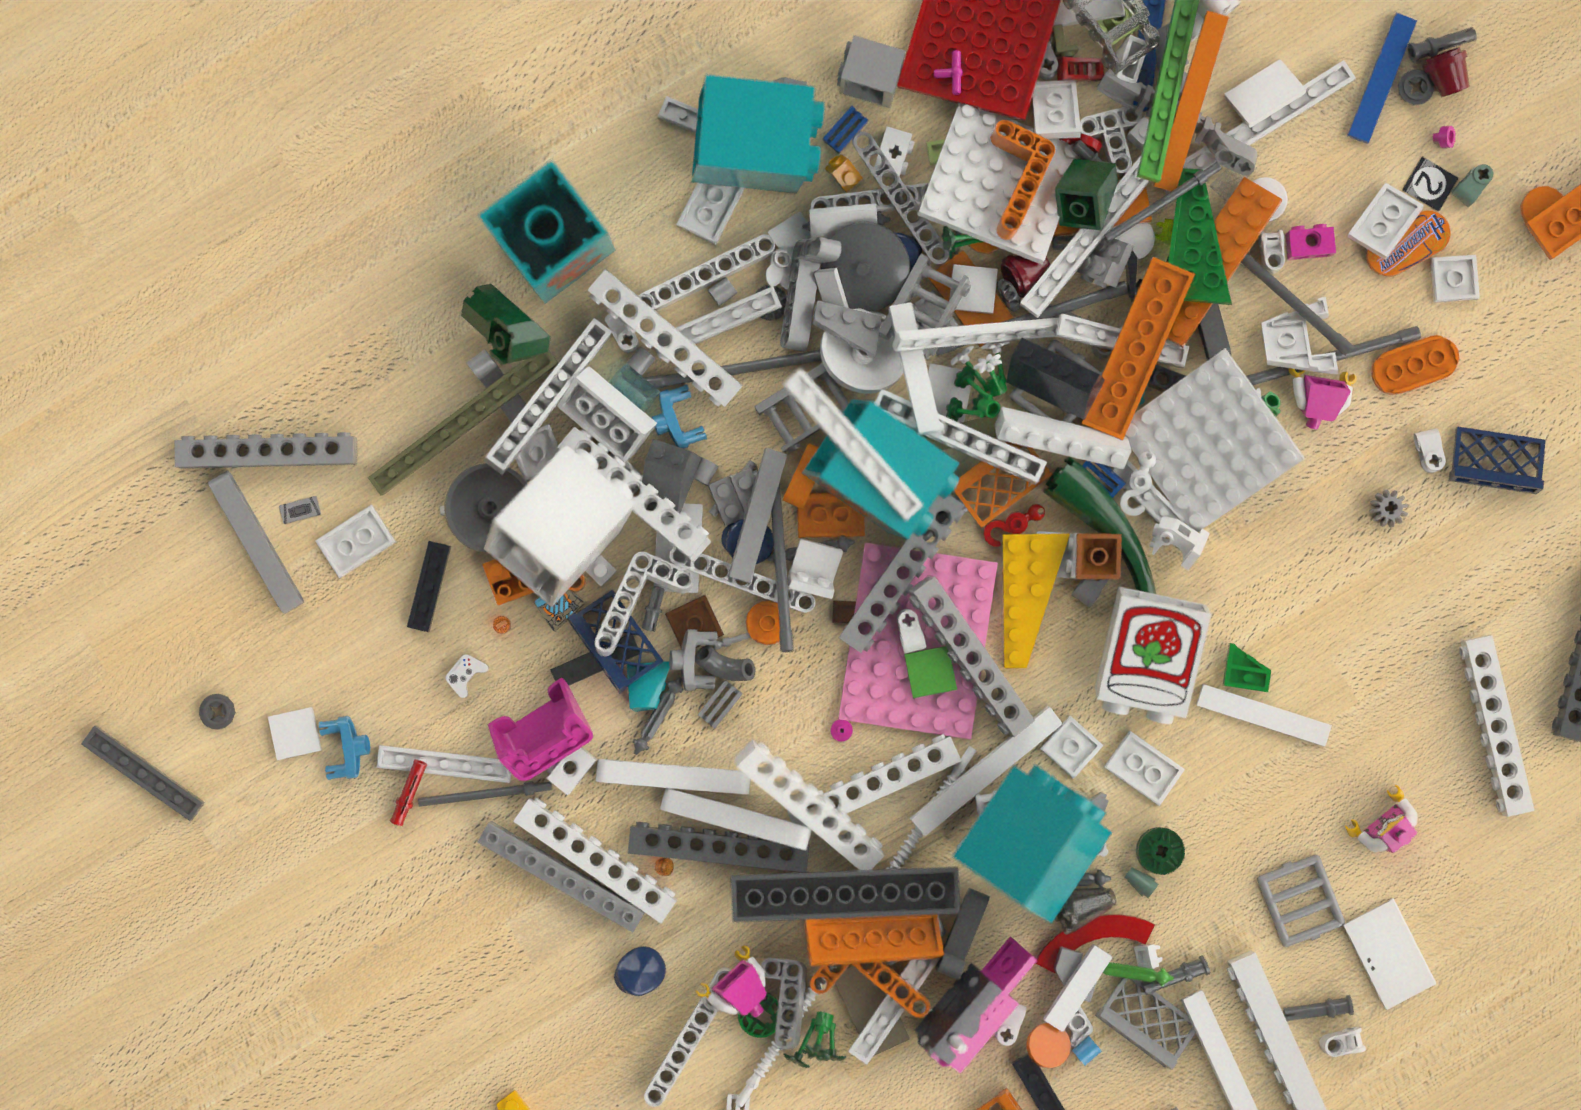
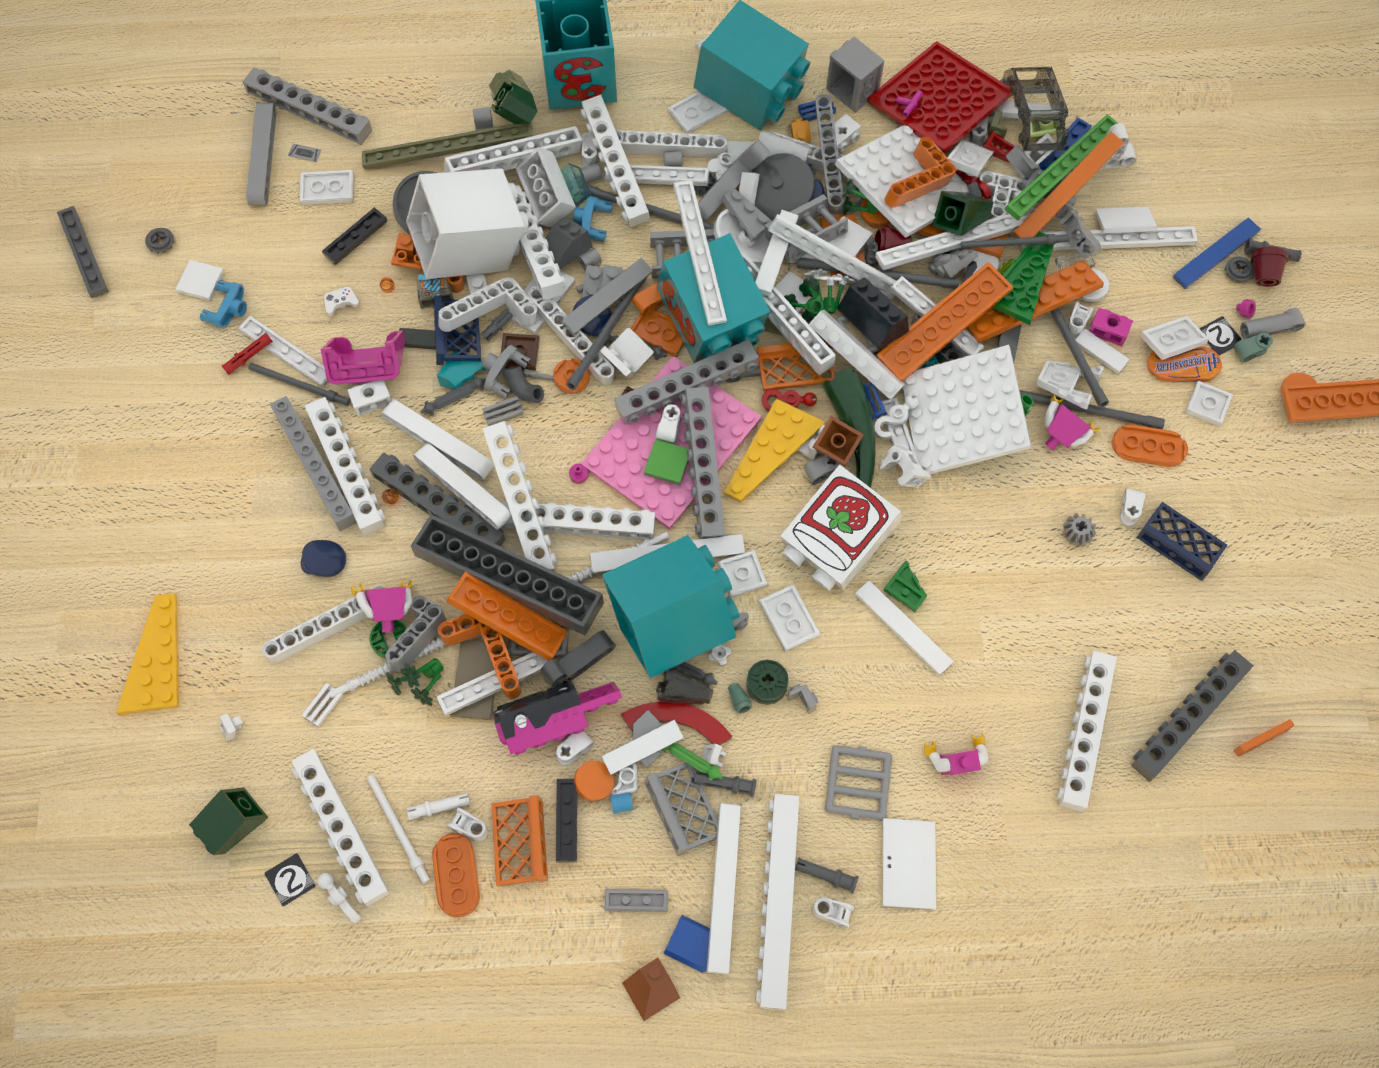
camera: 25 degrees right, 20 degrees down
(1210, 845) = (808, 698): none -> light grey bracket
(1313, 277) = (1101, 351): none -> white tile
(1482, 143) = (1288, 321): none -> light grey piece

